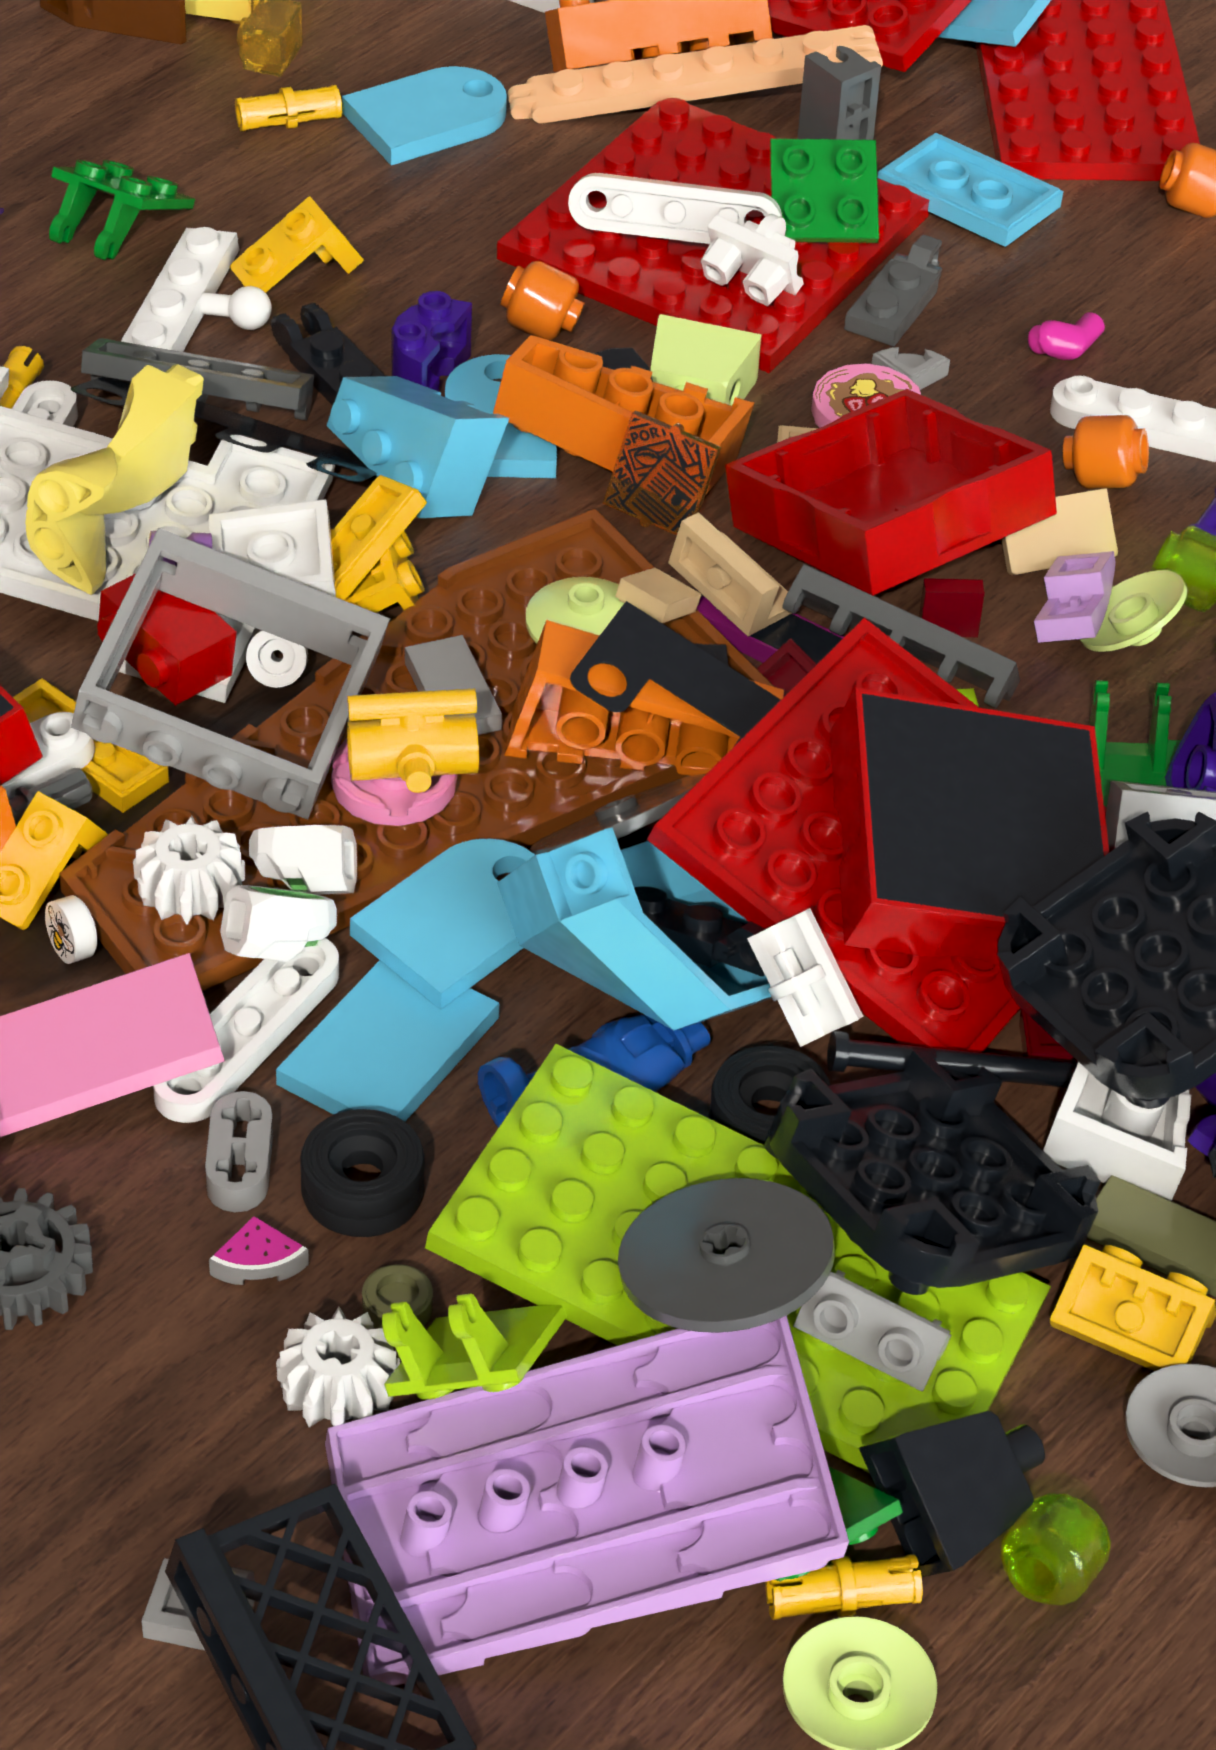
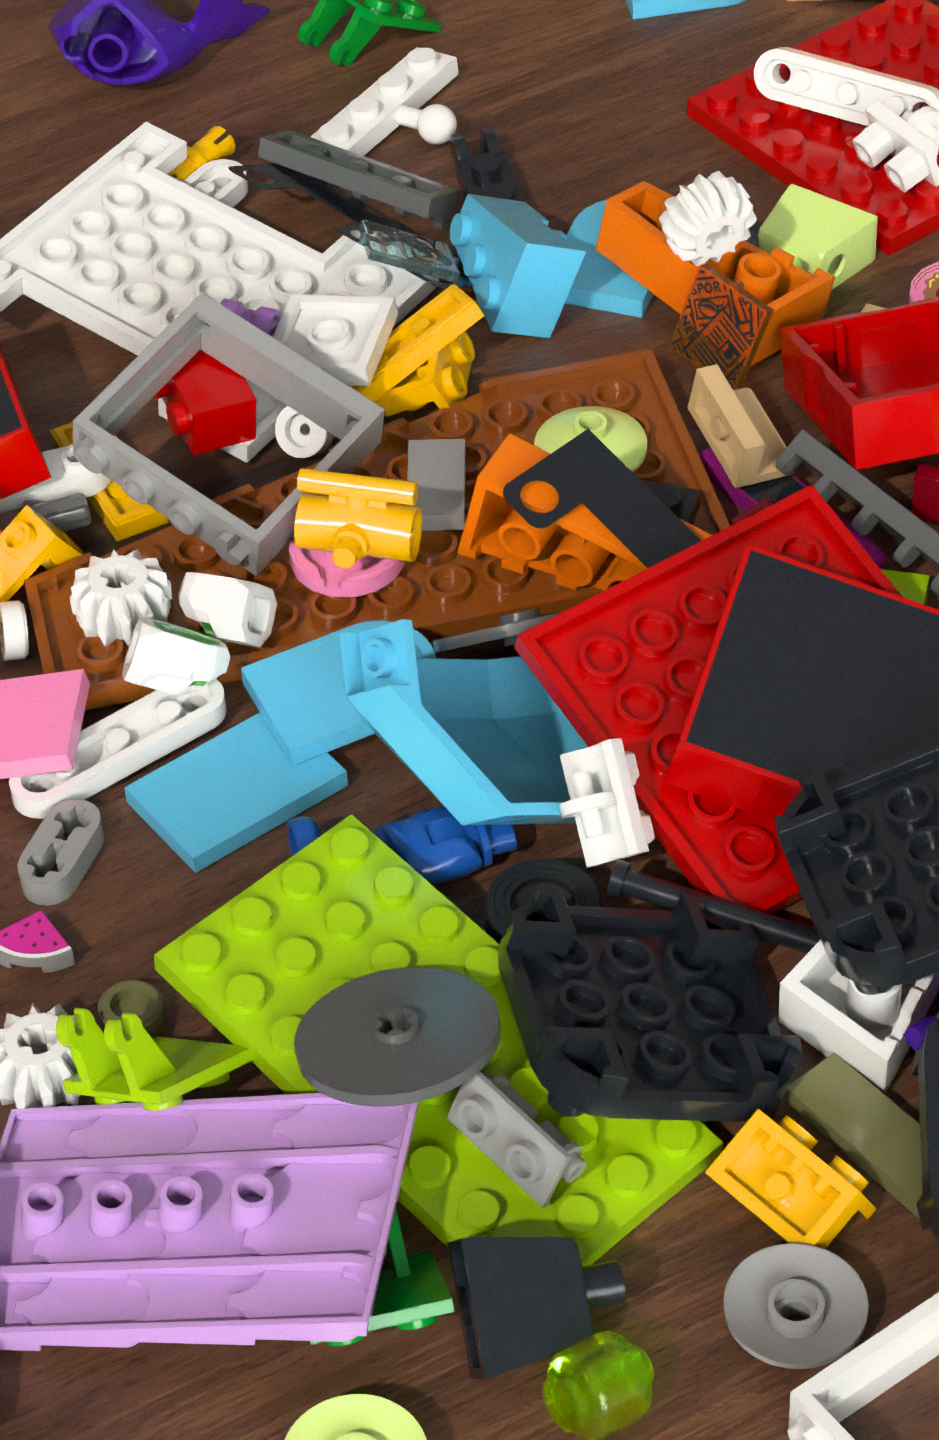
camera: 25 degrees right, 0 degrees up
(139, 464) = (243, 236): light yellow hips -> none
(290, 243) = (506, 62): yellow bracket -> none
(301, 448) = (408, 251): none -> piece
(367, 1206) = (143, 865): black tyre -> none
(431, 339) = (574, 177): dark purple cylinder -> none
(542, 300) = (696, 150): orange head -> none
(629, 364) = (707, 218): none -> white gear
(658, 595) = (661, 435): tan tile -> none
(701, 931) = (523, 733): black hinge -> none
(847, 1587) = (394, 1369): yellow pin -> none

